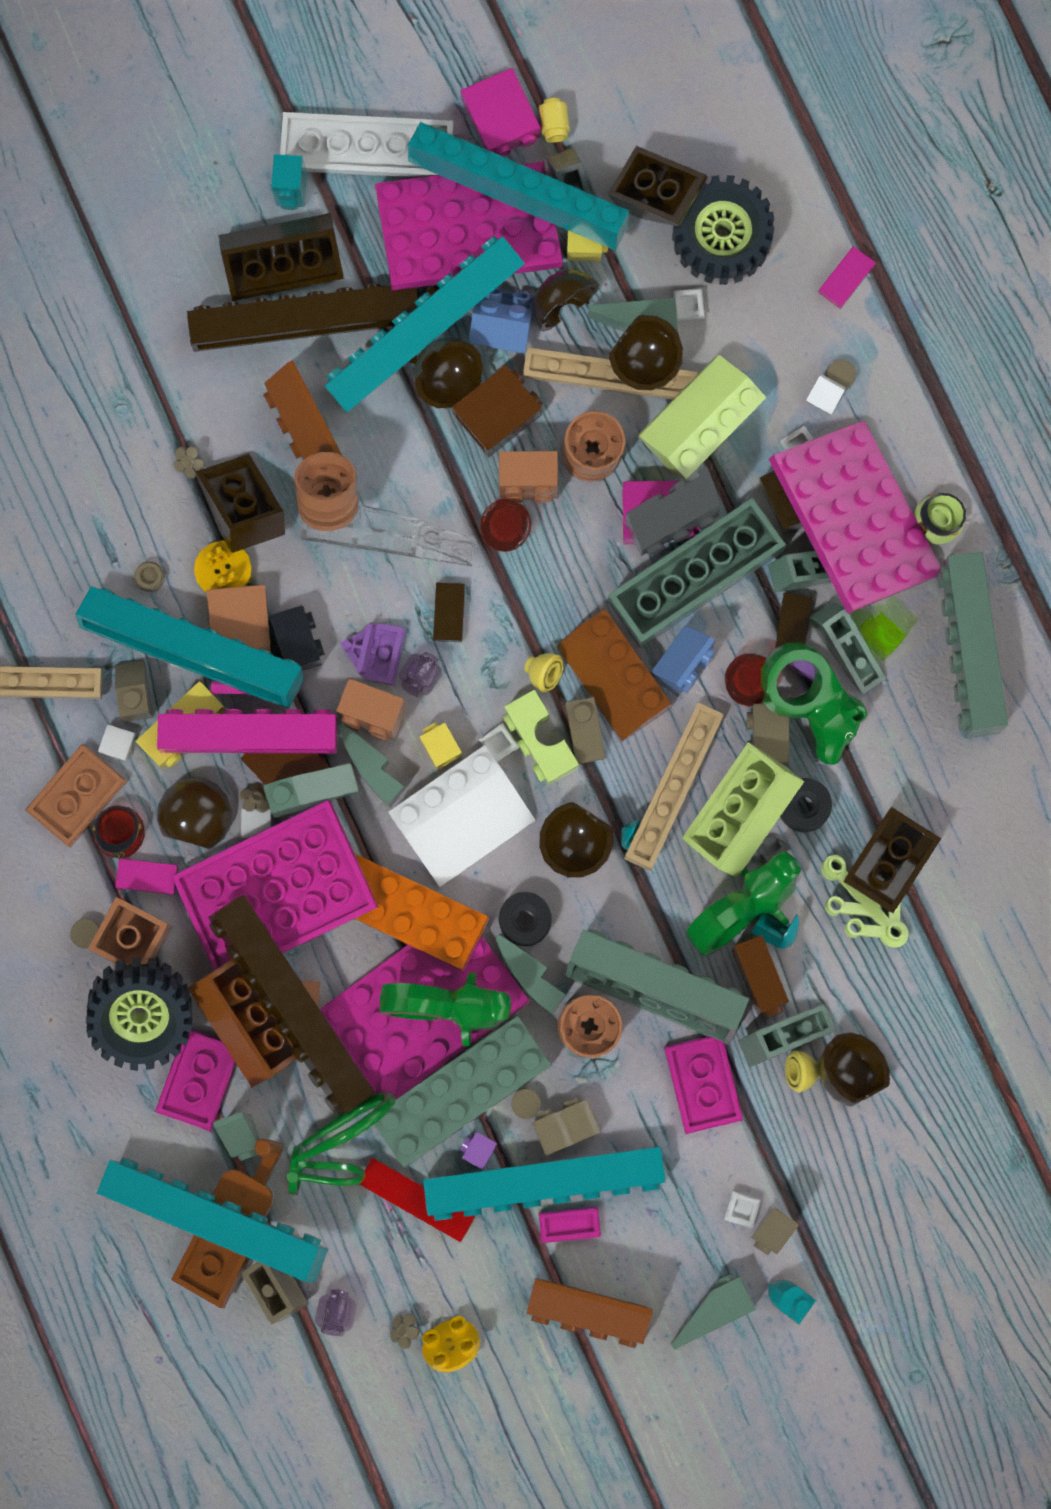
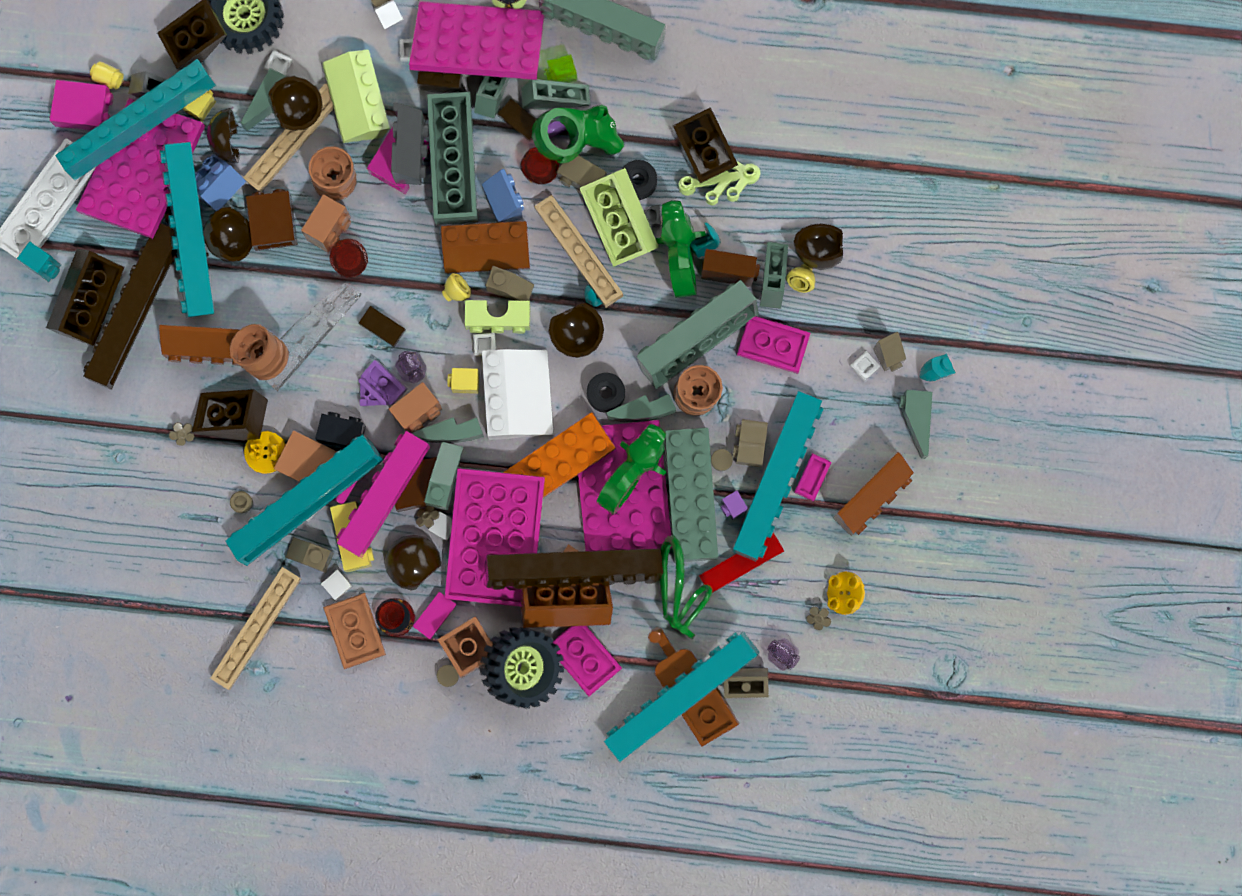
camera: 65 degrees left, 0 degrees up
(238, 1135) = (637, 649): sand green slope -> none

